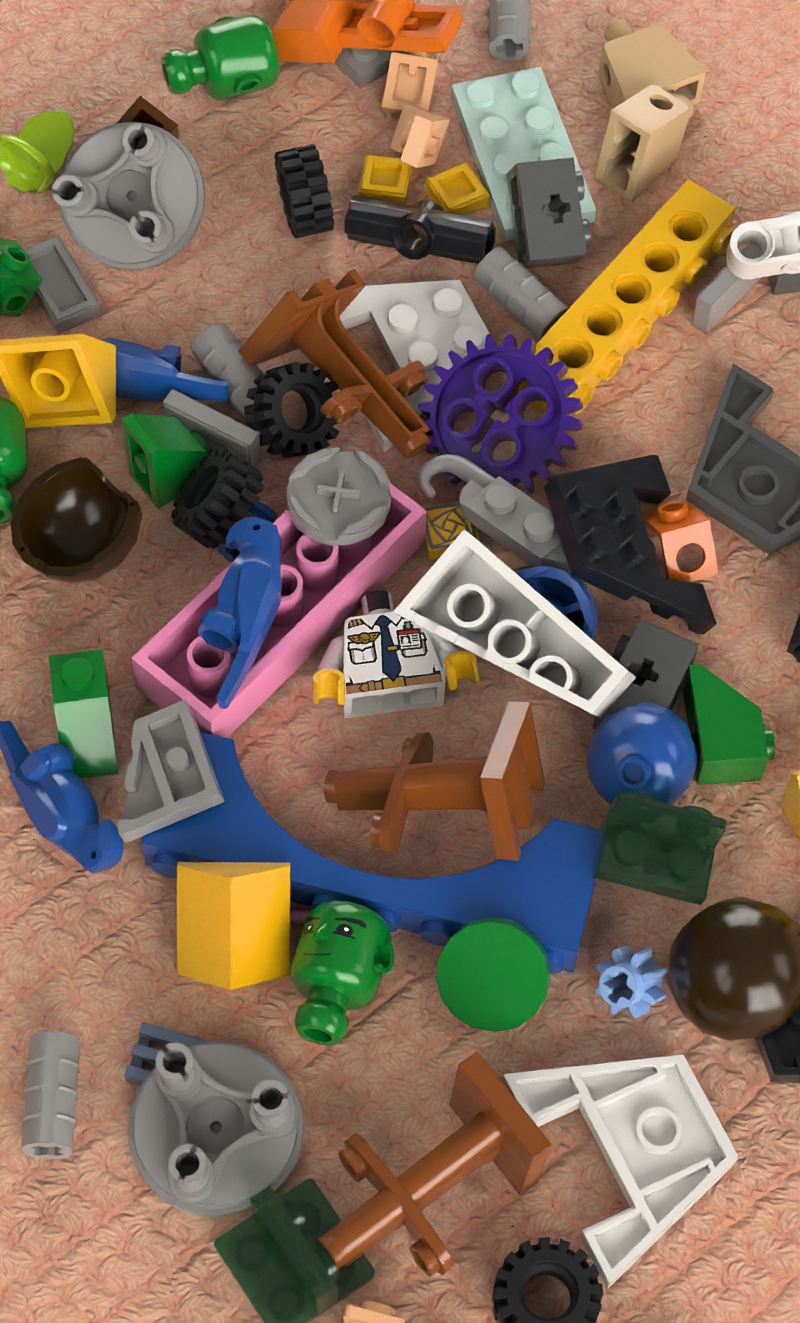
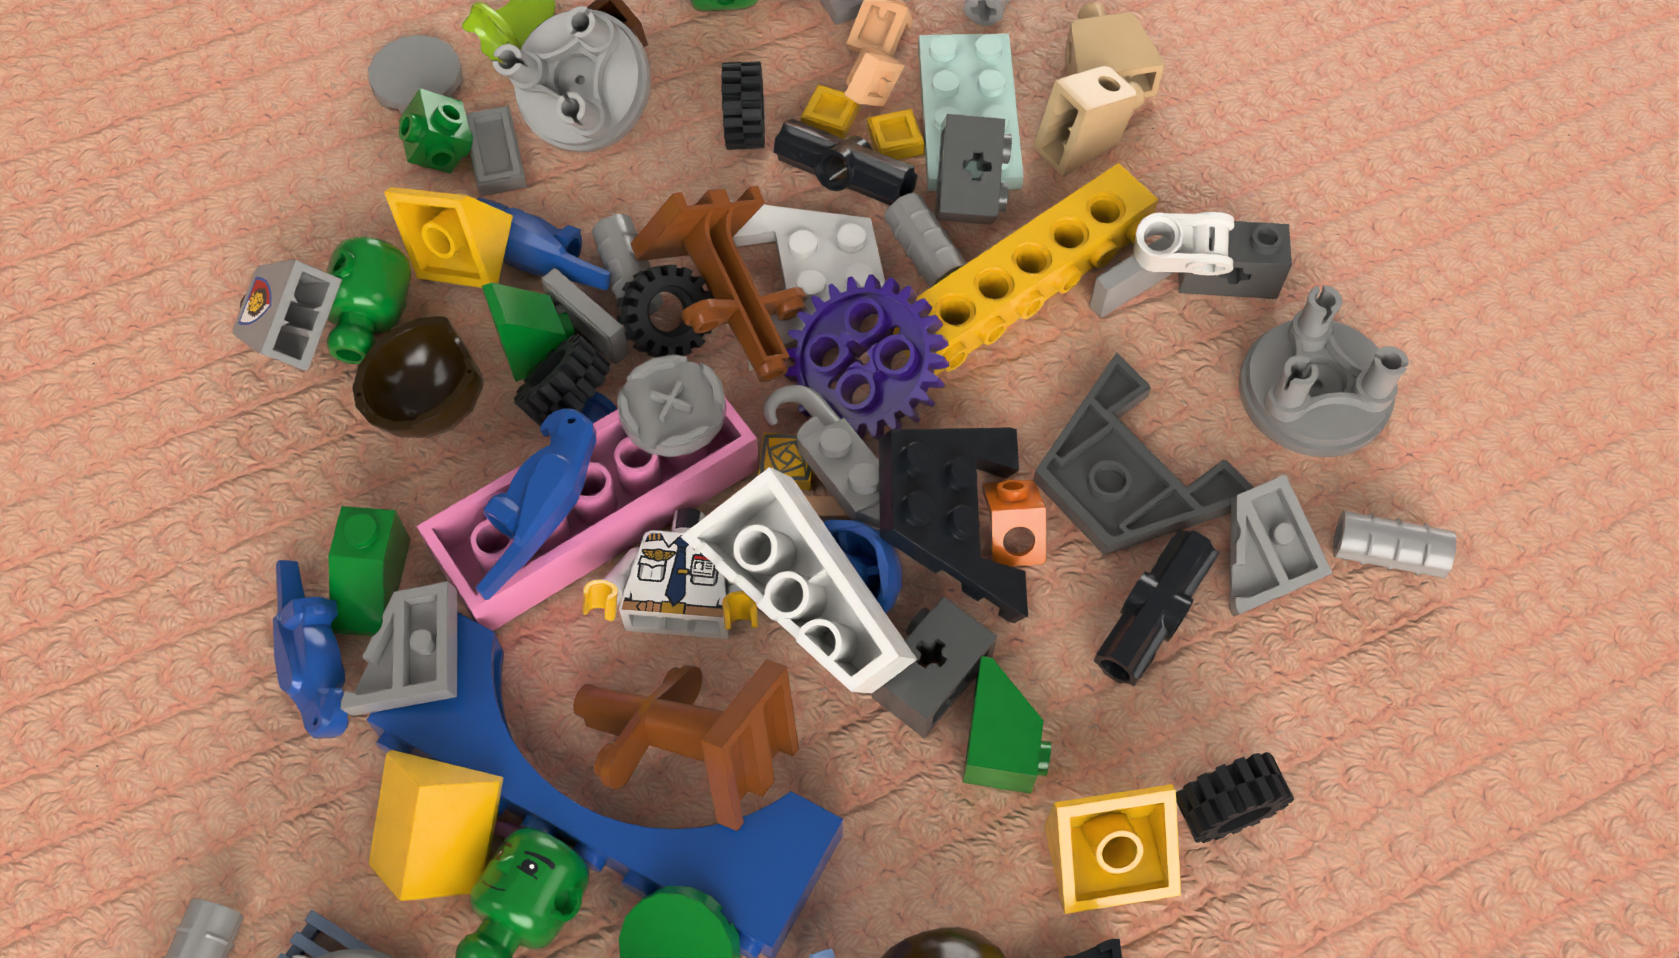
camera: 15 degrees right, 0 degrees up
(642, 752) = (903, 746): blue cylinder -> none
(658, 846) = (889, 852): clear green bracket -> none

